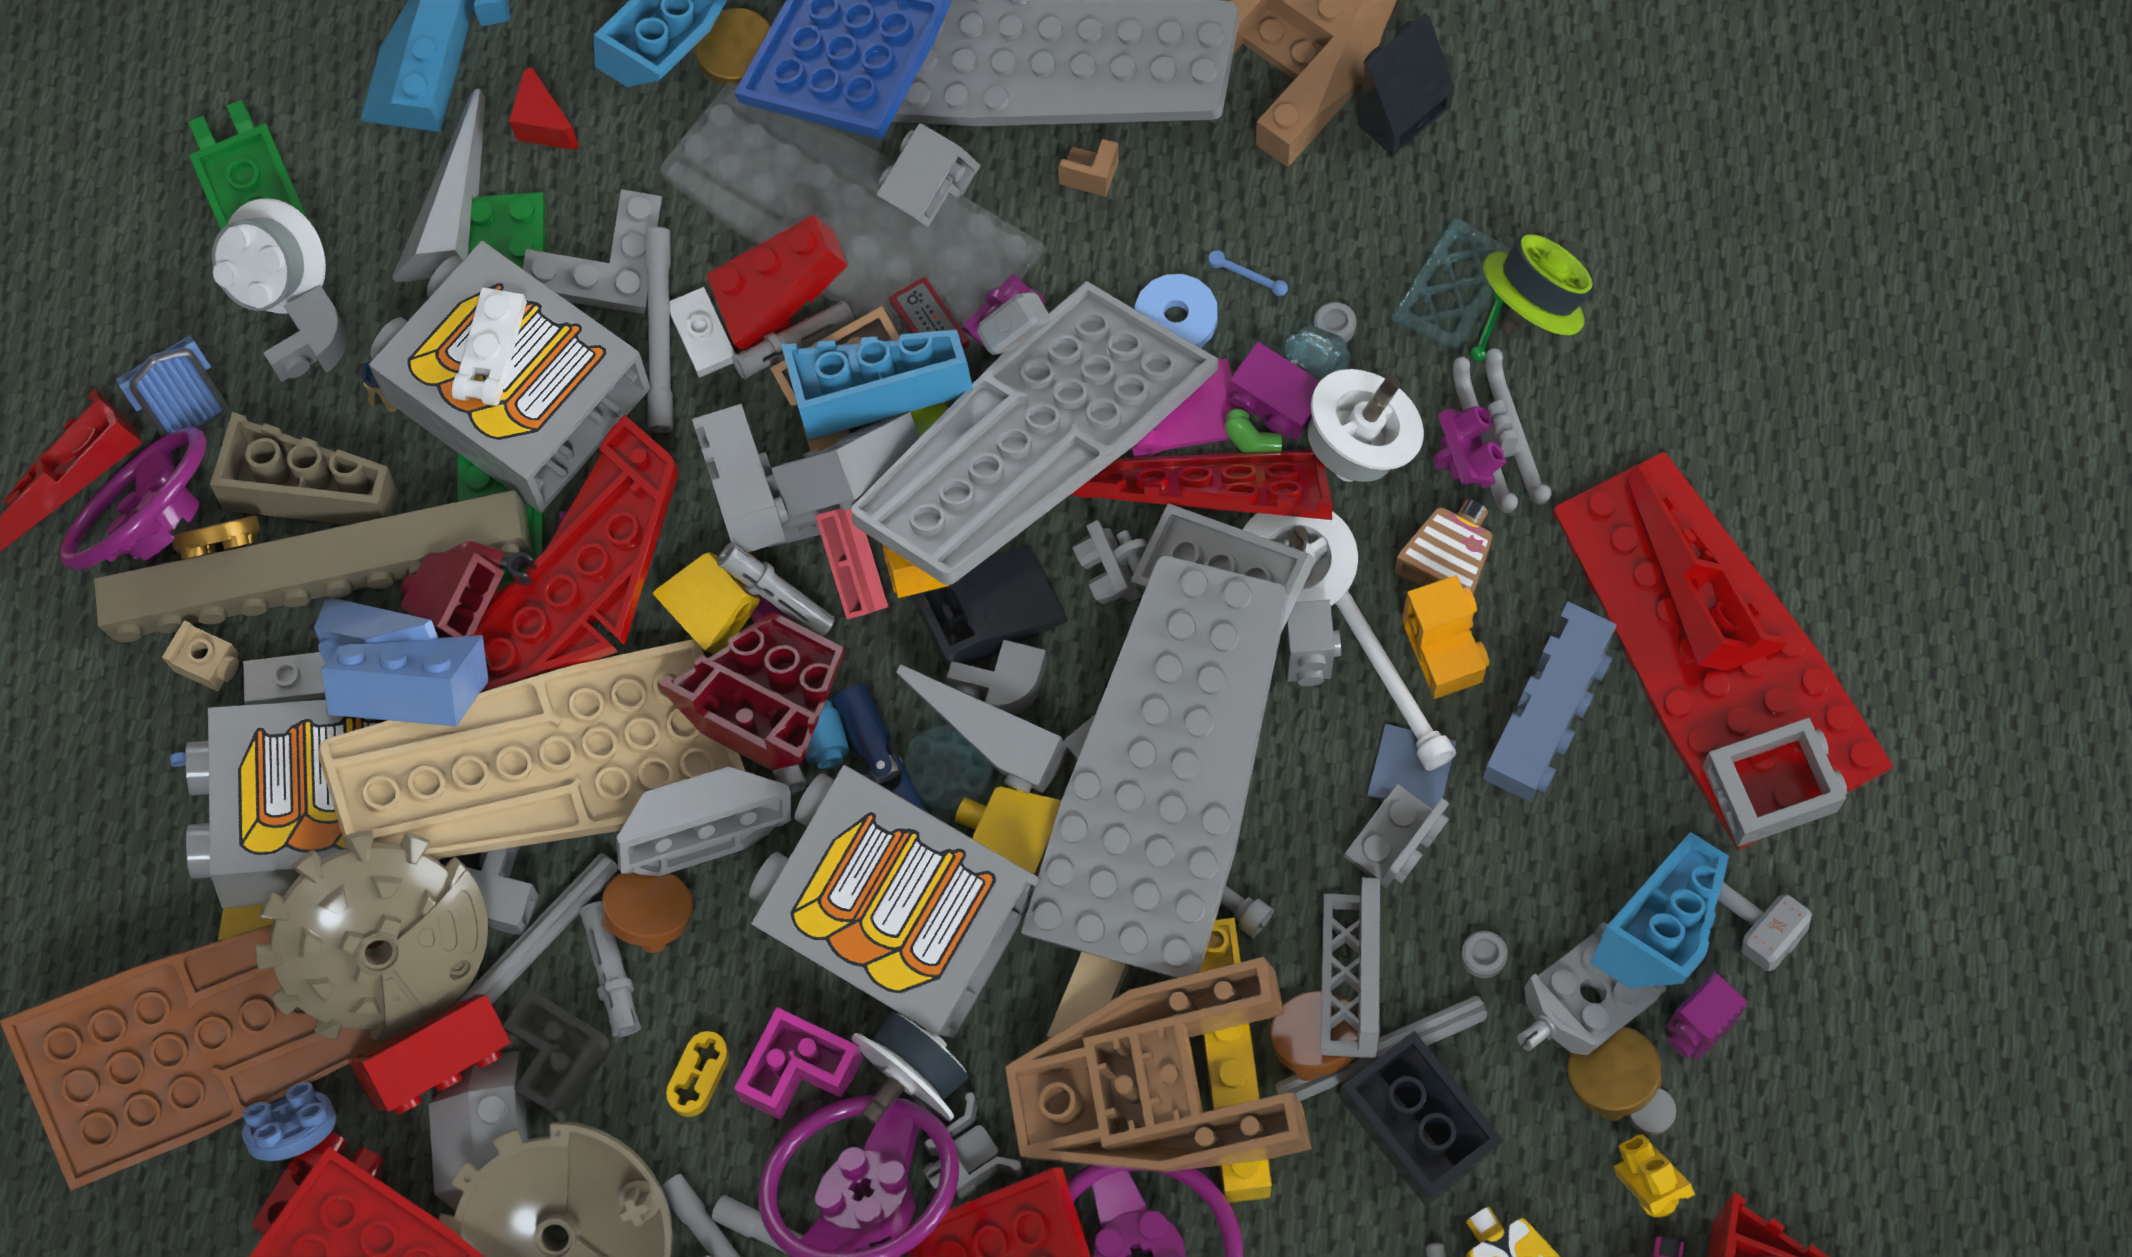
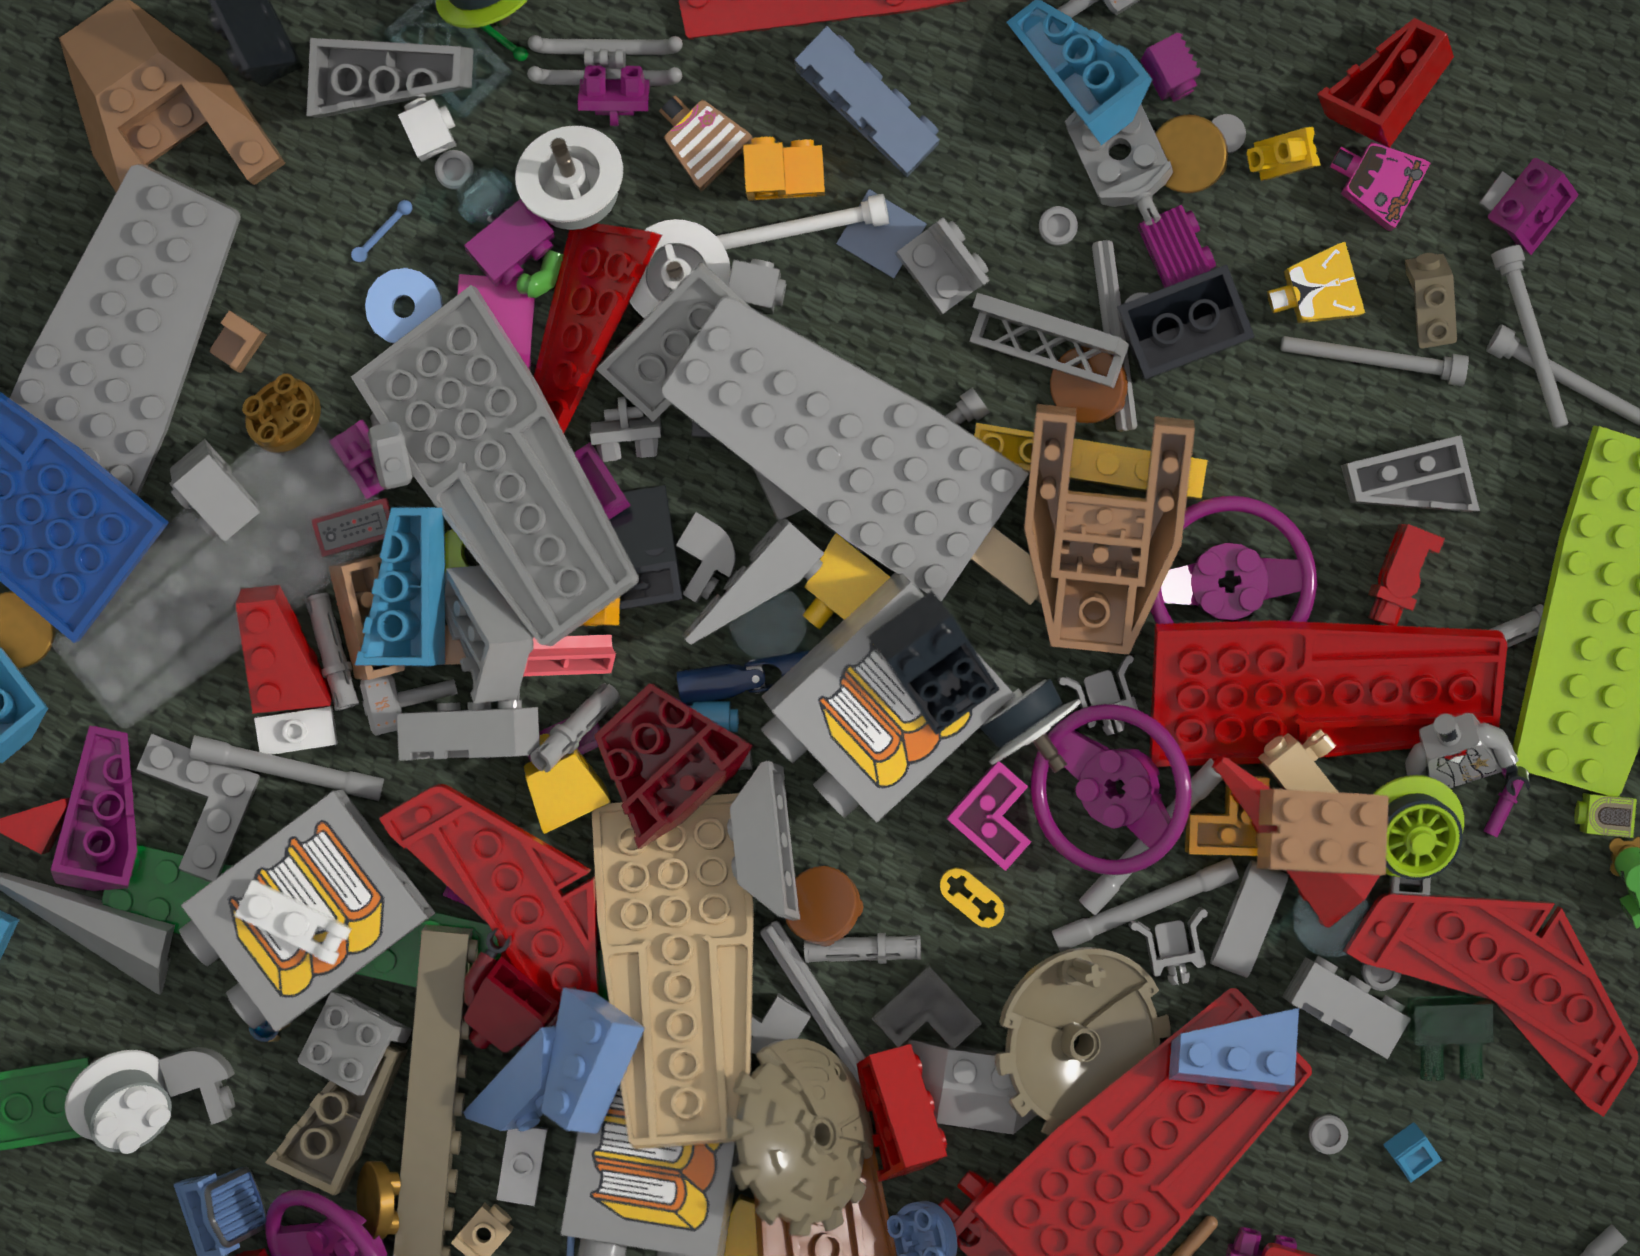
camera: 80 degrees left, 20 degrees up
(382, 458) = (350, 1042): none -> light grey bracket
(557, 166) = (99, 826): none -> magenta wedge
(761, 400) = (384, 702): none -> light grey piece
(945, 923) = (934, 662): none -> black slope
(1027, 224) = (282, 414): none -> pearl gold tile
(1044, 545) = (601, 481): none -> magenta tile
(1368, 282) = (428, 127): none -> white brick
(1405, 210) = (373, 74): none -> light grey wedge
(1508, 1084) = (1175, 246): none -> magenta brick

